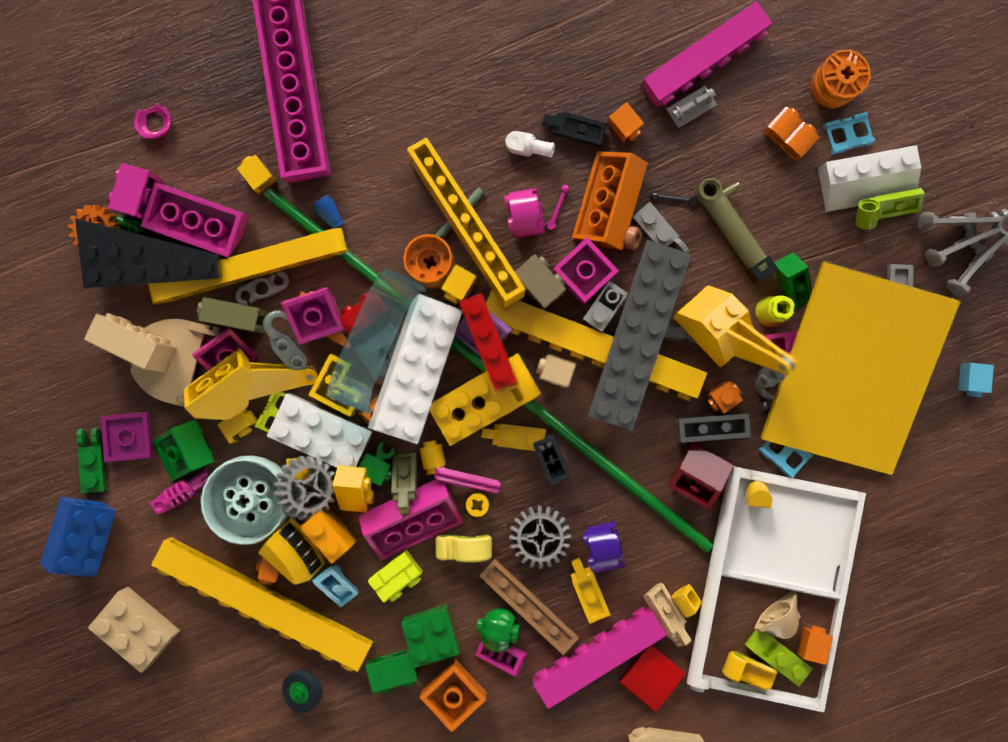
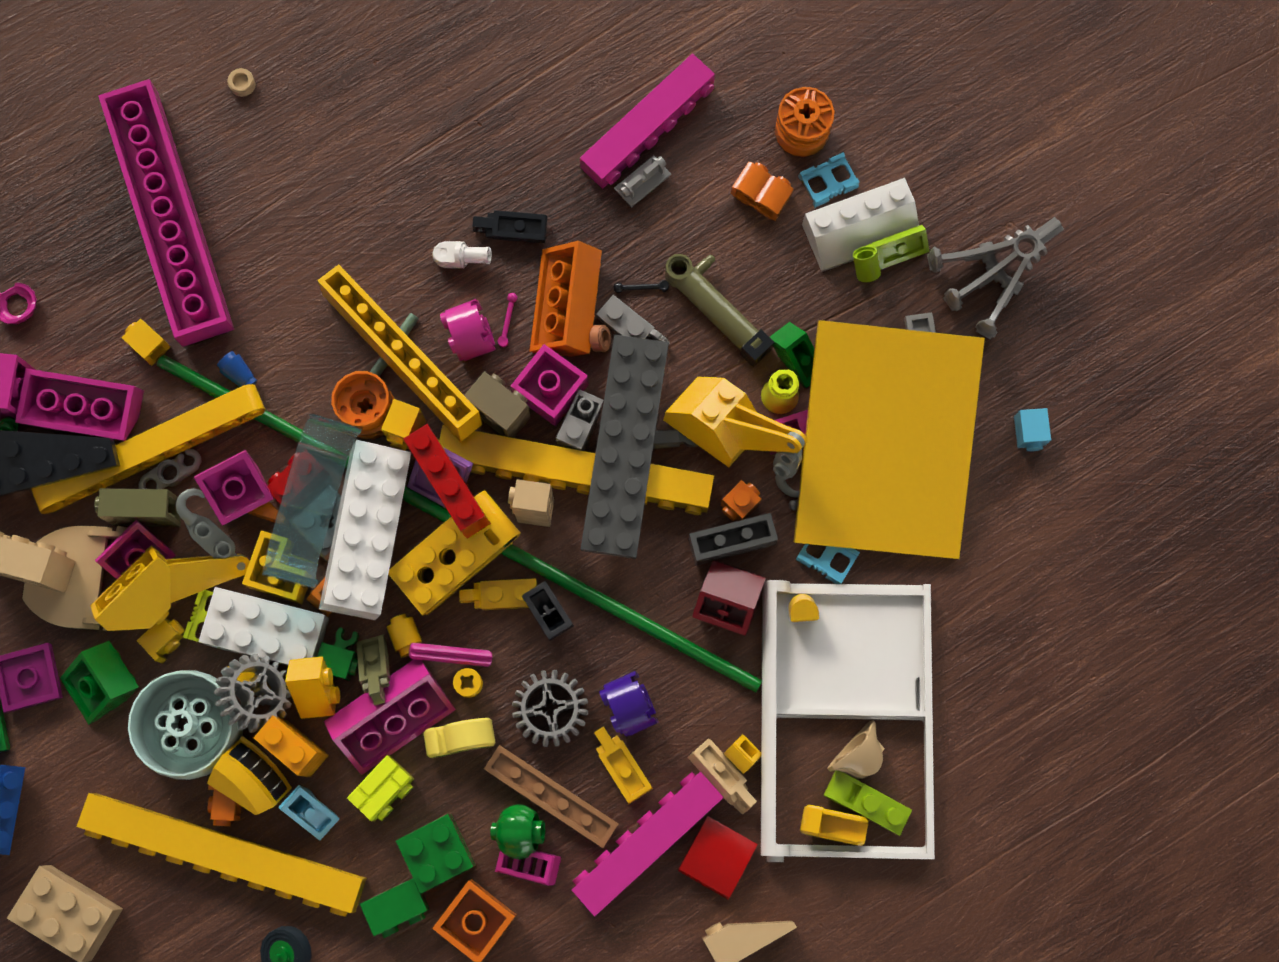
camera: 10 degrees left, 10 degrees down
(179, 492) = (99, 735): dark pink hinge -> none
(625, 123) = (569, 211): orange brick -> none
(815, 644) = (908, 779): orange brick -> none

